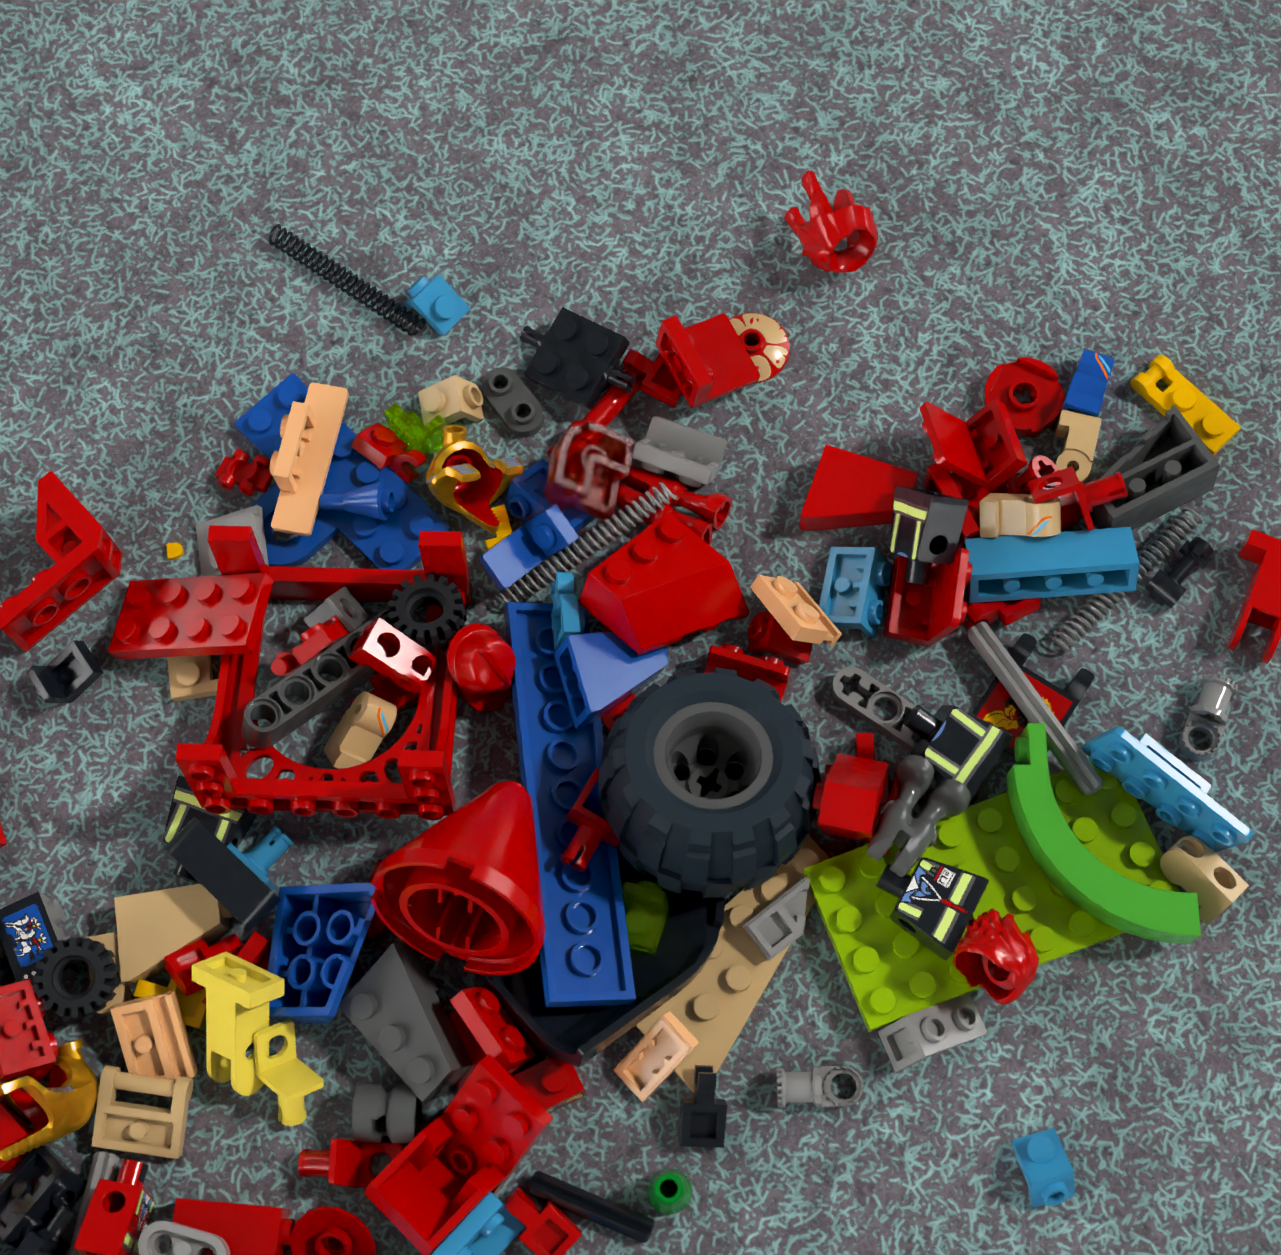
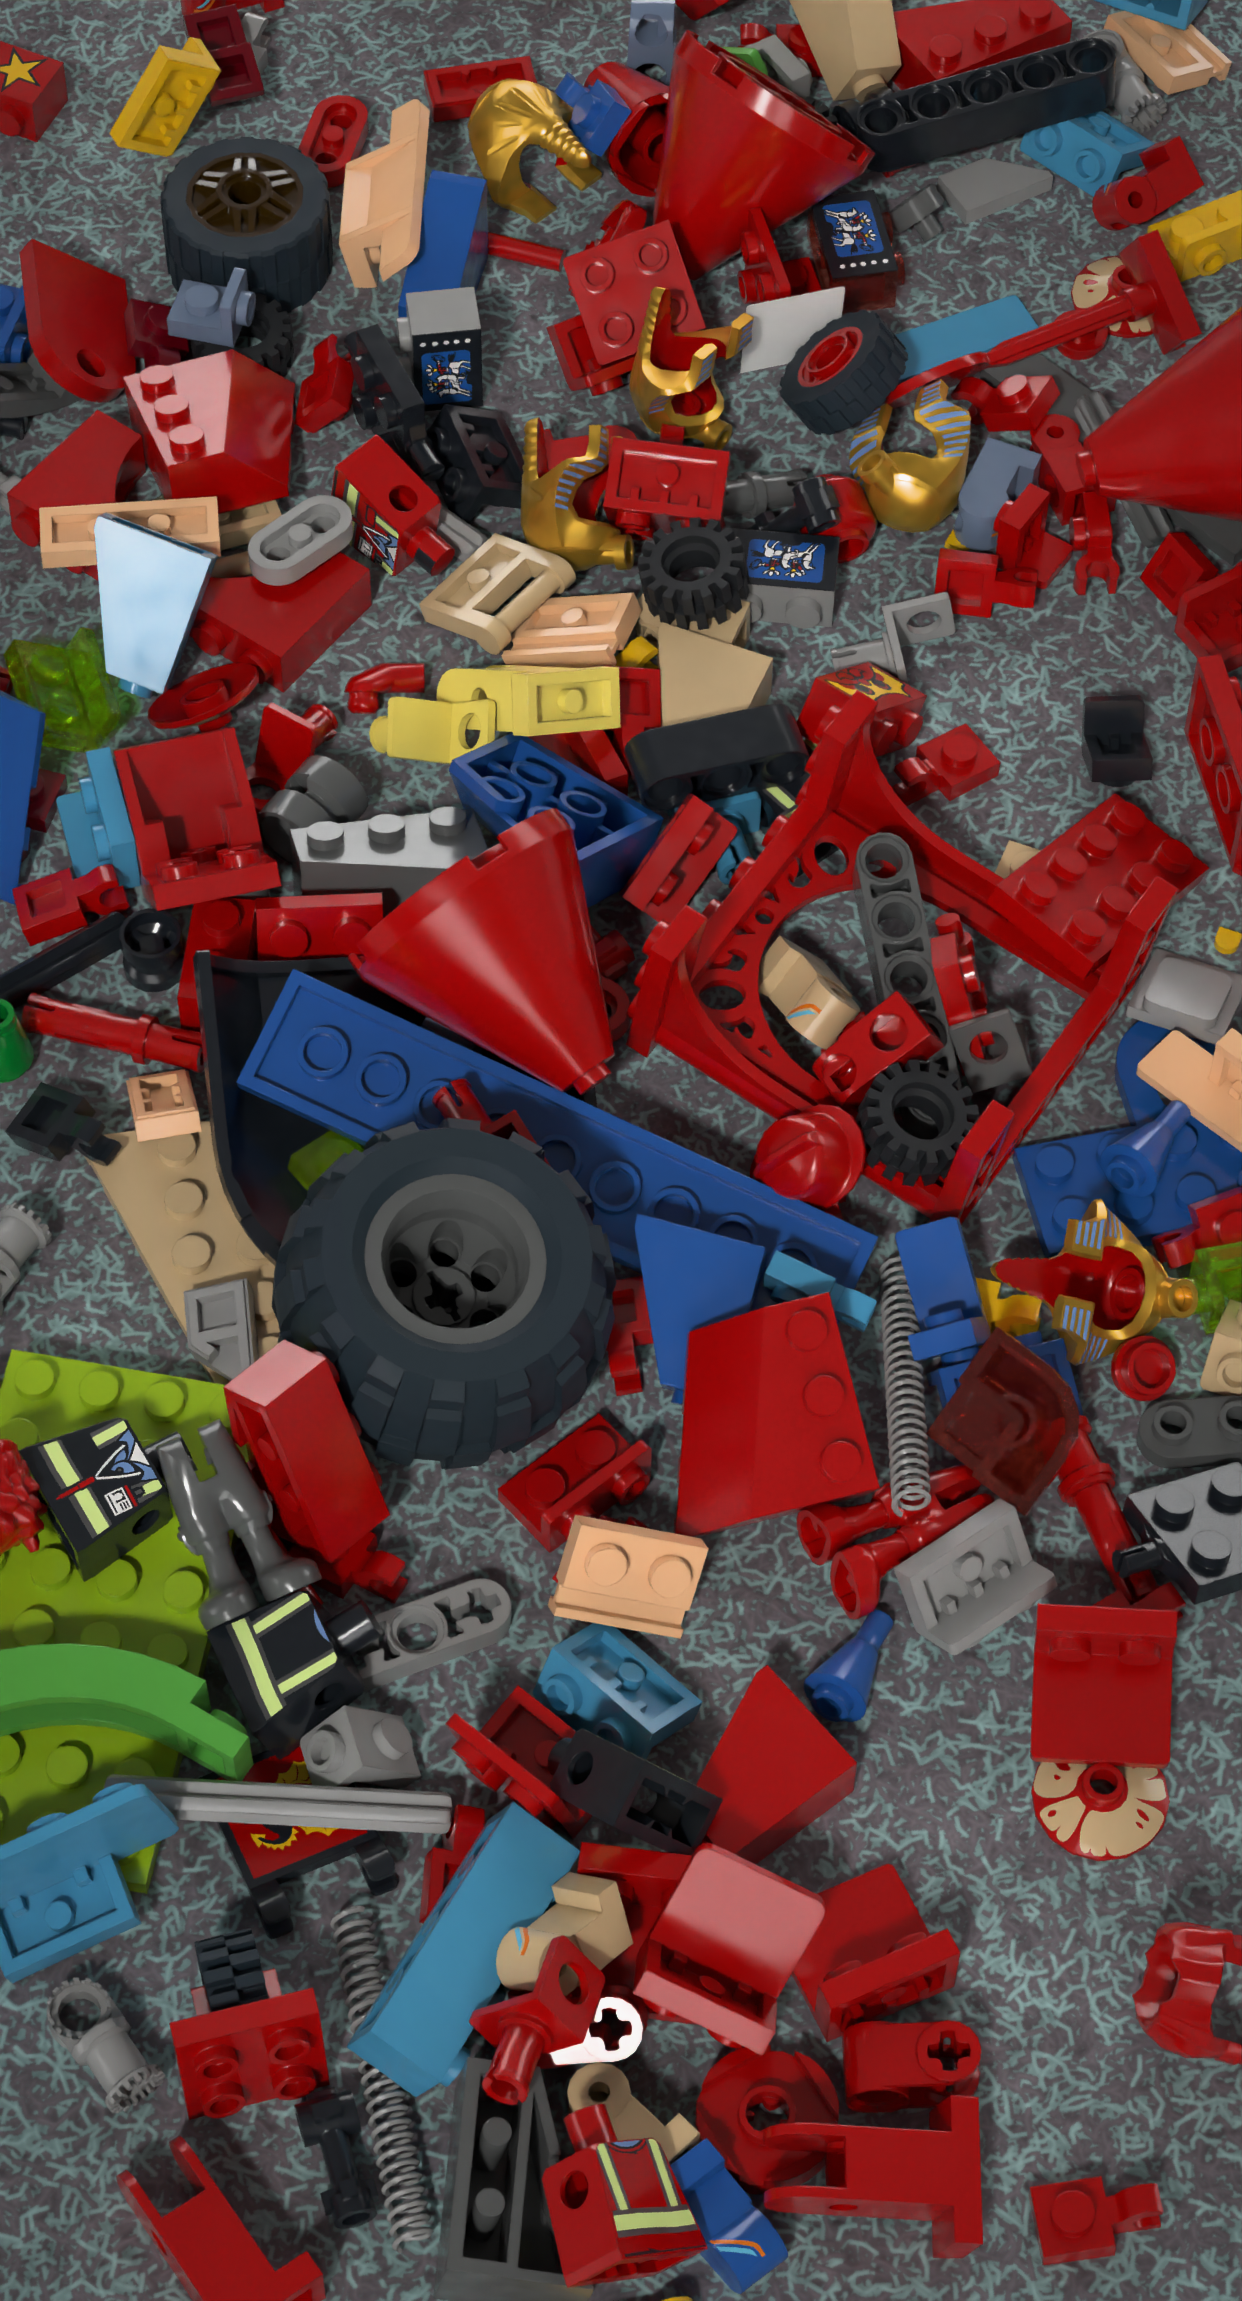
camera: 115 degrees right, 15 degrees down
(62, 843) = (886, 652): none -> light grey bracket
(128, 763) = (948, 764): none -> red plate
(130, 819) = (896, 715): none -> red brick
(253, 1148) = (383, 678): none -> red arm
(304, 864) = (679, 860): none -> red bracket
(496, 442) = (1143, 1368): none -> red plate
(551, 1139) = (152, 950): none -> black wheel
(614, 1129) = (141, 1038): none -> red pin
(769, 488) = (844, 1681): none -> blue cone
(905, 386) = (872, 1954): none -> red bracket
(959, 353) = (902, 2066): none -> red piece
(971, 245) = (1080, 2222): none -> red plate
(974, 690) = (360, 1748): none -> light grey bracket
(1021, 320) = (894, 2173): none -> red piece
(1135, 411) = (616, 2205): none -> red torso
(1162, 642) = (245, 2033): none -> red plate

